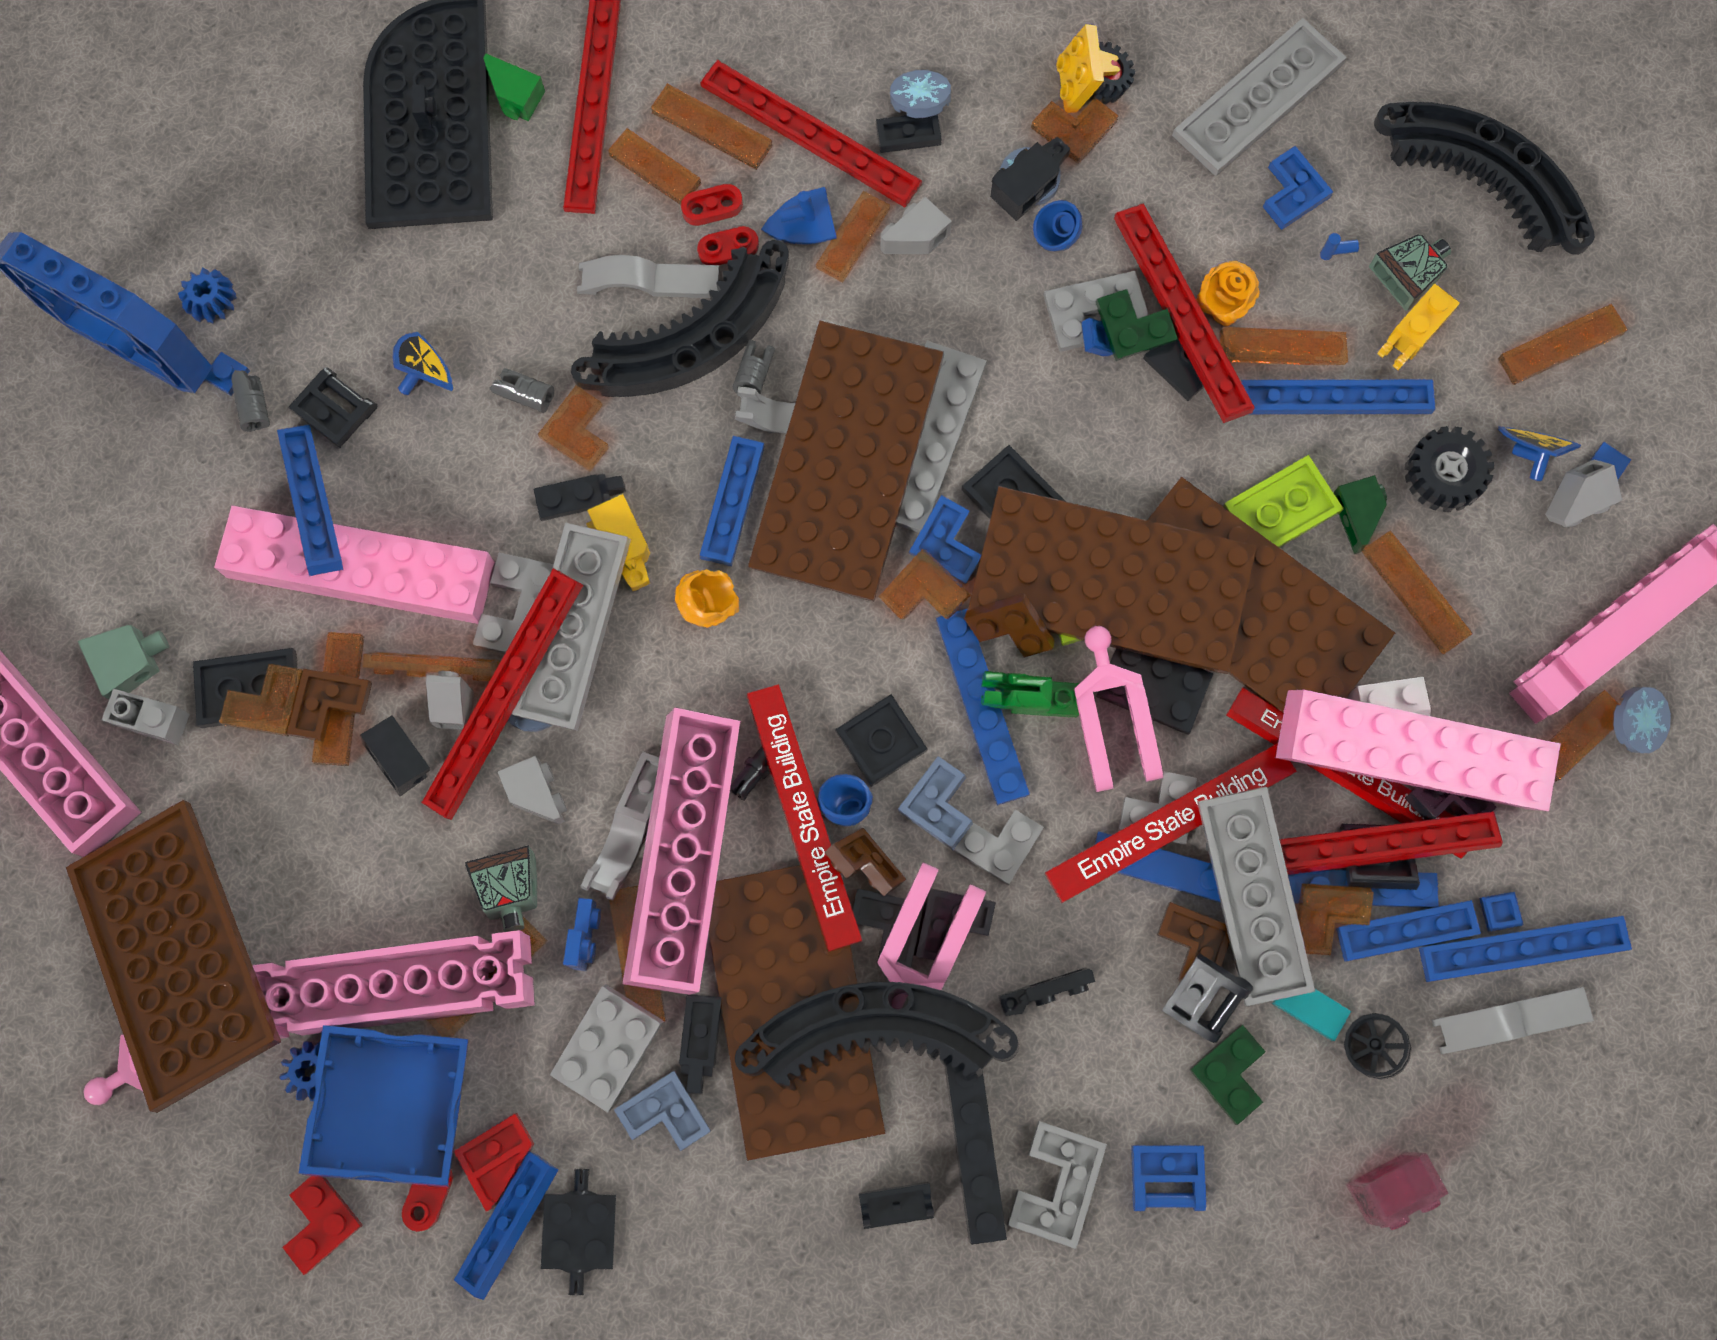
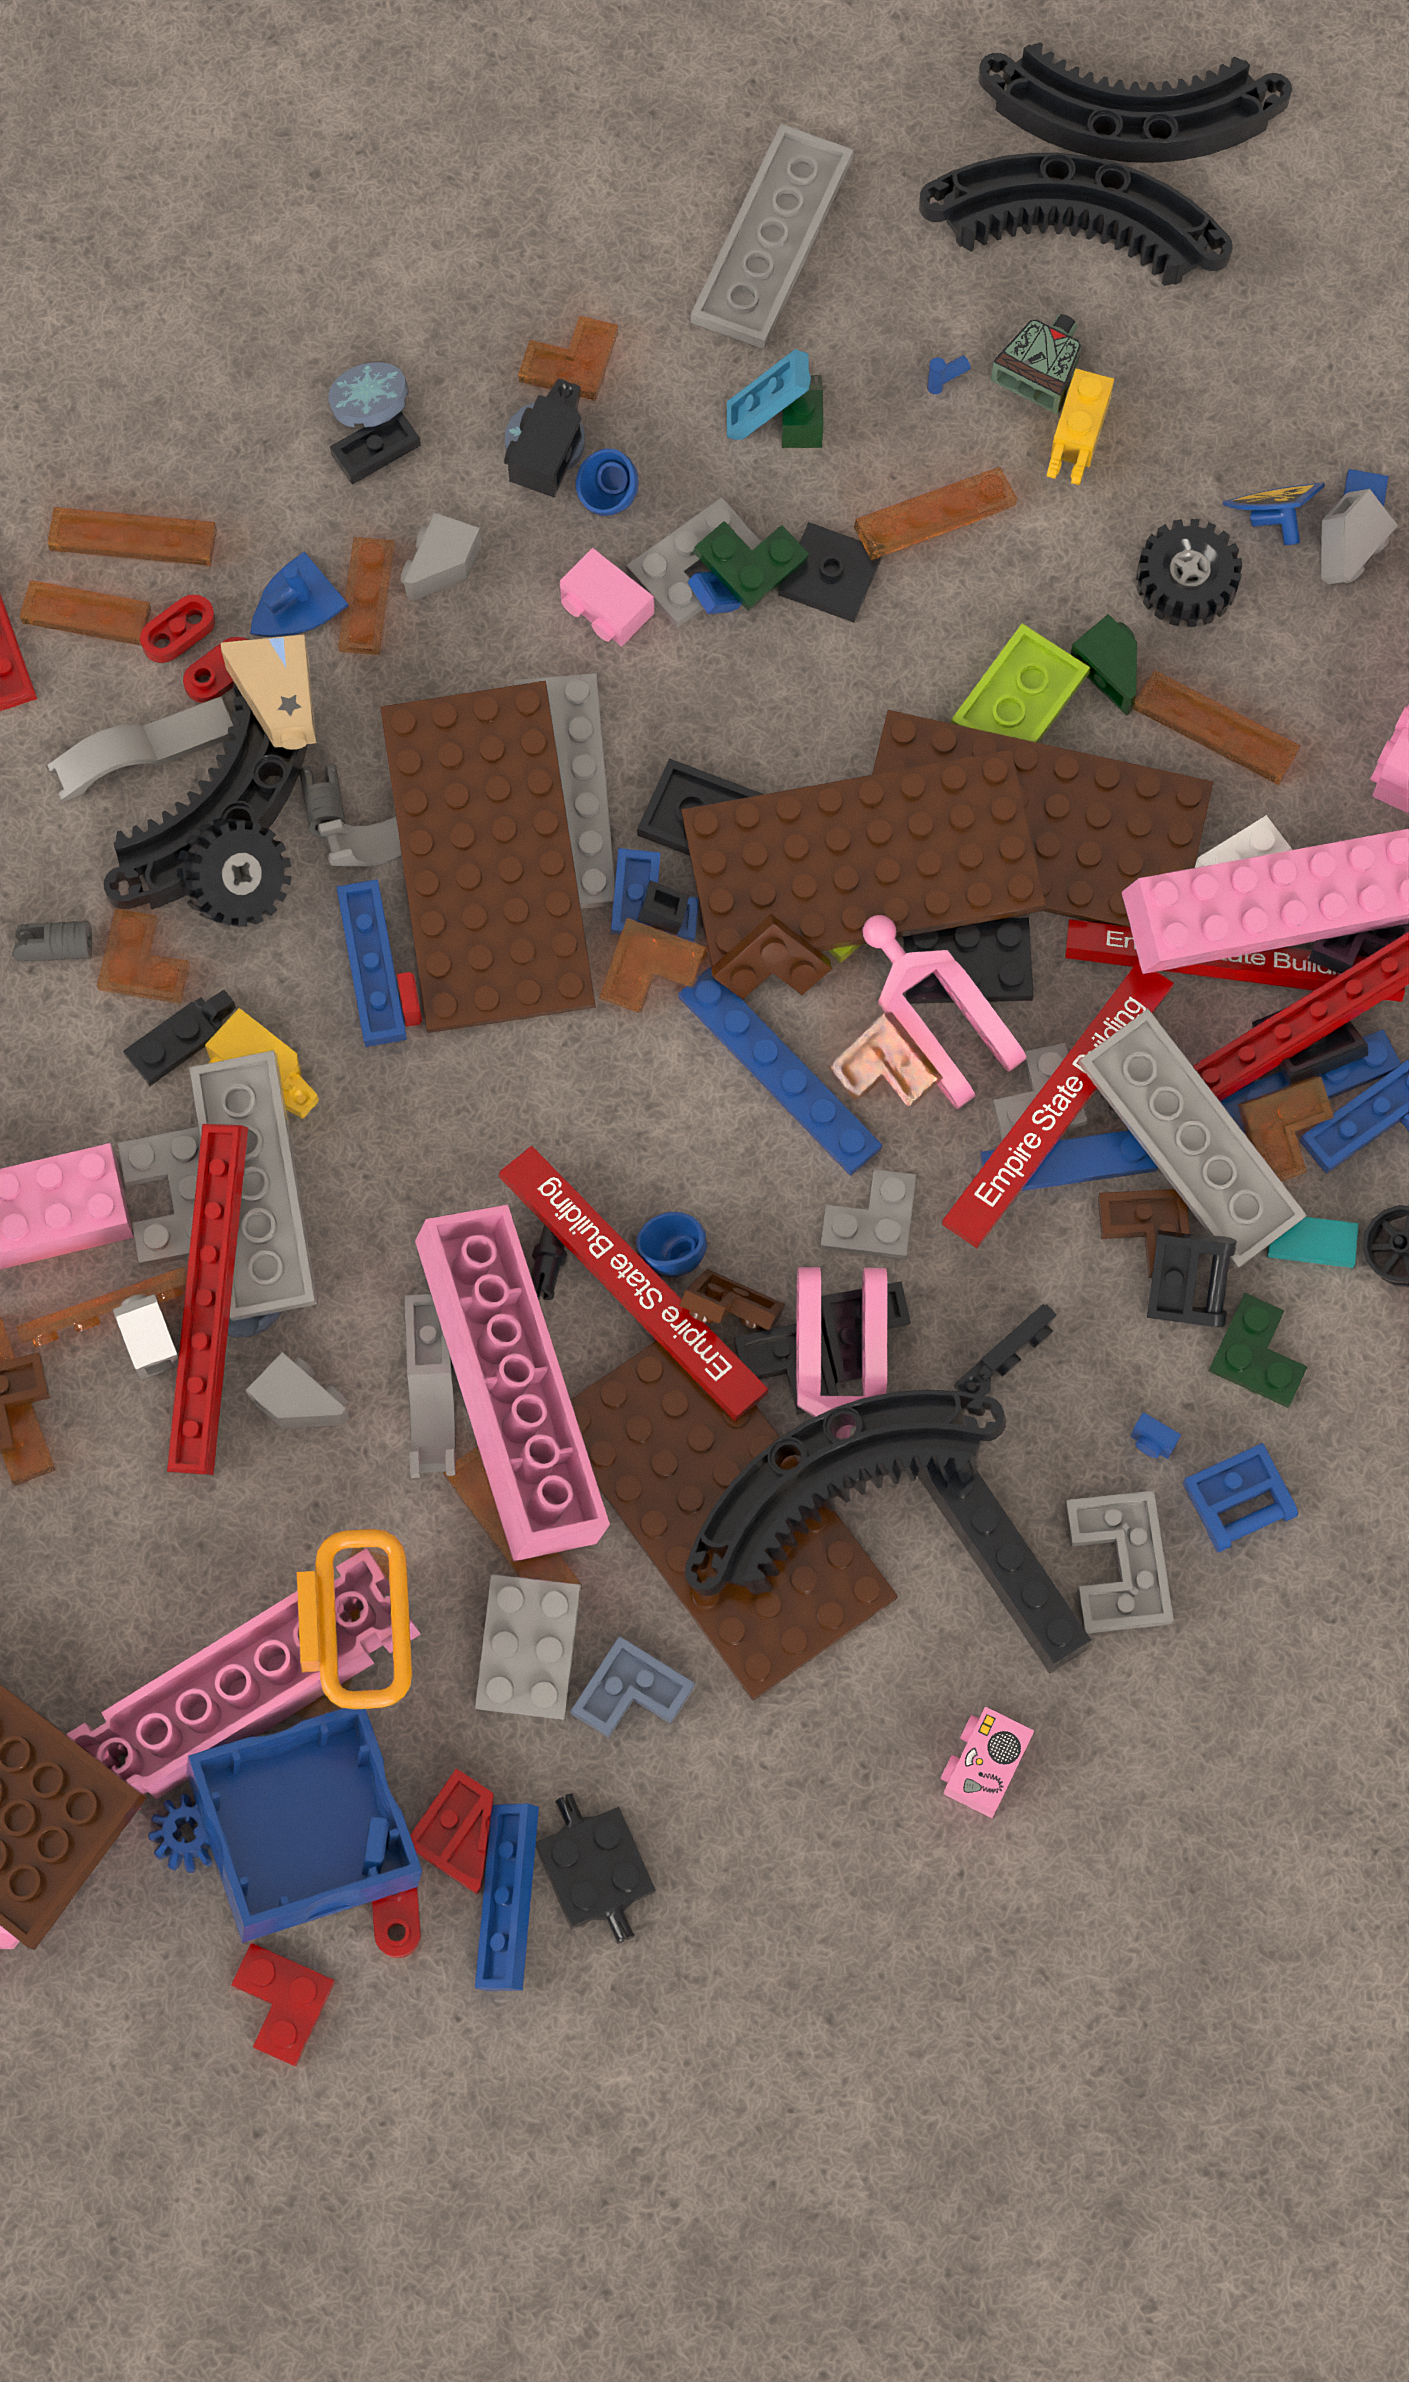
camera: 25 degrees left, 5 degrees down
(395, 755) = (109, 1430): black hinge -> none
(426, 1148) = (375, 1844): none -> blue tile
(456, 970) = (318, 1619): none -> light orange bar
(506, 885) = (312, 1511): torso -> none
(579, 949) = (443, 1540): blue plate -> none
(655, 382) = (214, 865): none -> black wheel
(699, 1039) = (632, 1589): black hinge -> none
(706, 598) = (396, 1086): light orange hair -> none
(745, 538) = (409, 999): none -> red tile
(755, 275) = (276, 686): none -> tan slope
(811, 133) = (255, 495): red tile -> none
(881, 740) = (680, 1159): black plate -> none
(891, 1289) = (987, 1761): none -> bright pink brick
(896, 1205) = (948, 1667): black hinge -> none
(929, 805) = (774, 1210): sand blue plate -> none
(951, 552) = (663, 907): none -> black plate
(1018, 309) = (606, 598): none -> bright pink brick
(1029, 694) = (821, 1031): green plate -> none
(1065, 731) = (889, 1053): none -> clear orange plate
(1092, 69) = (560, 284): yellow plate -> none
(1125, 1104) = (1154, 1437): none -> blue plate
(1186, 315) = (811, 526): red tile -> none
(1201, 210) = (768, 395): none -> dark azure plate
(1221, 232) = (804, 418): none -> dark green slope
(1226, 295) = (840, 481): light orange hair -> none
(1302, 188) = (873, 323): blue plate -> none
(1341, 396) = (1022, 545): blue plate -> none
(1562, 344) = (1252, 378): clear orange plate -> none
(1601, 134) = (1077, 110): none -> black gear

